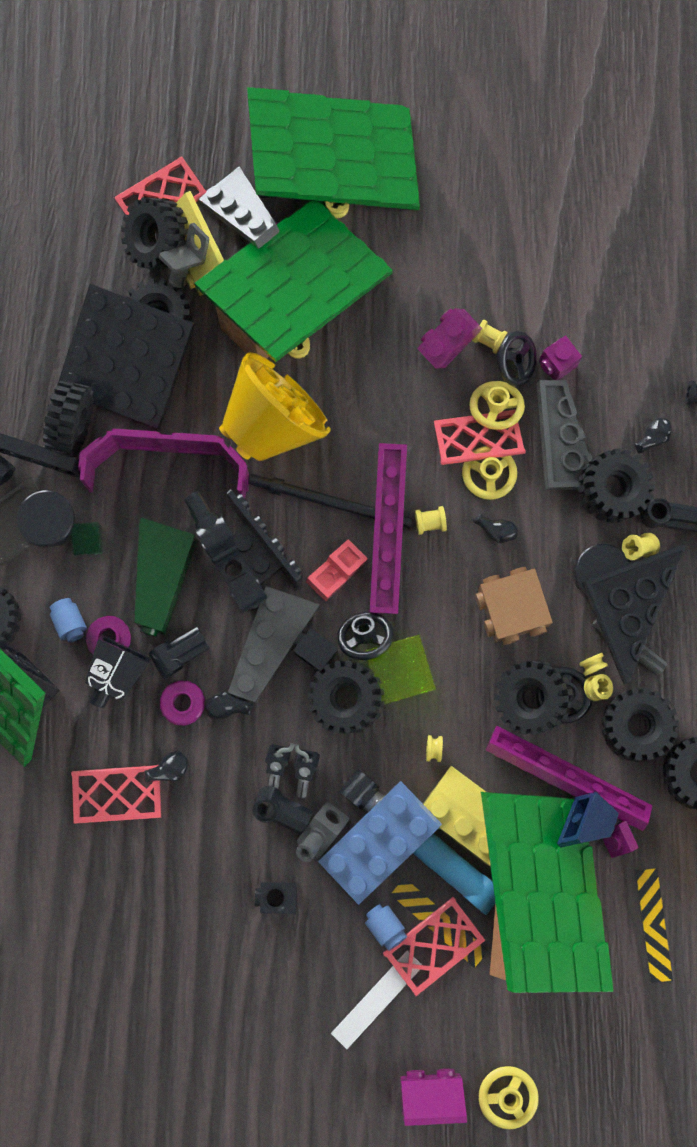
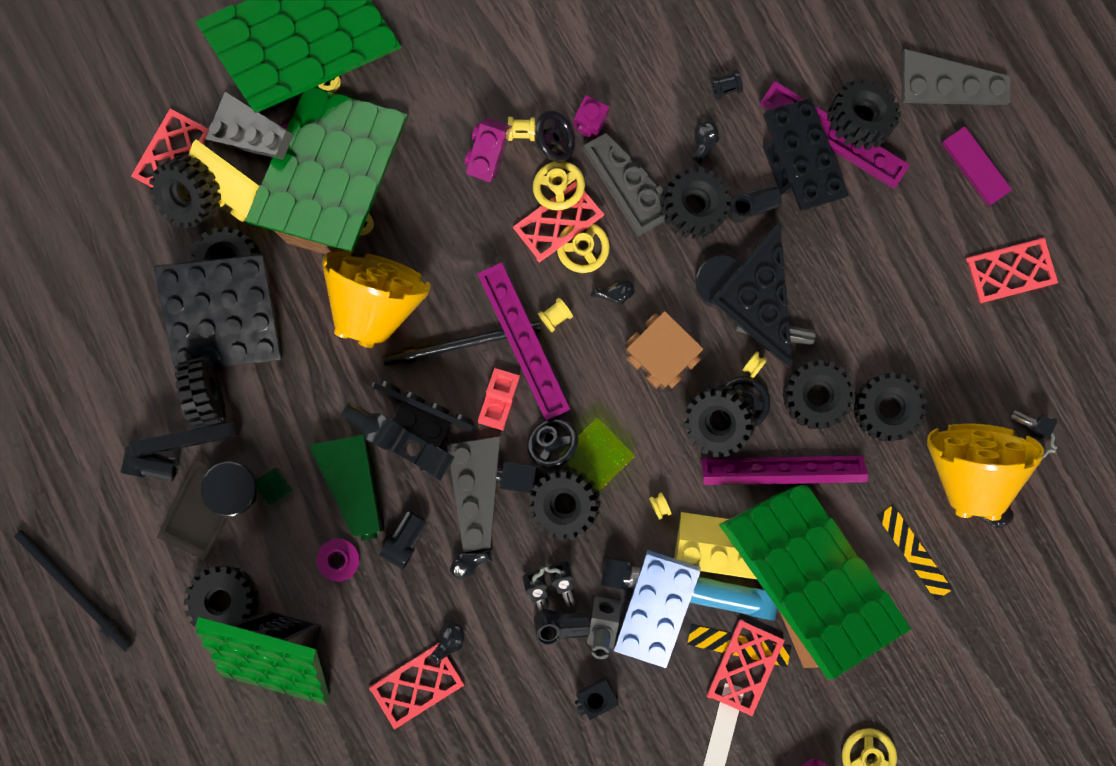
camera: 20 degrees left, 5 degrees up
(67, 620) = (295, 564): medium blue brick -> none
(113, 670) = (358, 585): black torso -> none
(142, 440) = (244, 402): magenta windscreen -> none
(168, 698) = (416, 580): magenta piece -> none
(186, 256) = (223, 199): dark grey bracket -> none
(385, 927) = (698, 674): medium blue brick -> none
(588, 820) = (818, 499): dark blue slope -> none
(605, 688) = (774, 379): light yellow bush -> none
(621, 840) = (850, 499): magenta plate -> none
(636, 546) = (739, 246): light yellow bush -> none

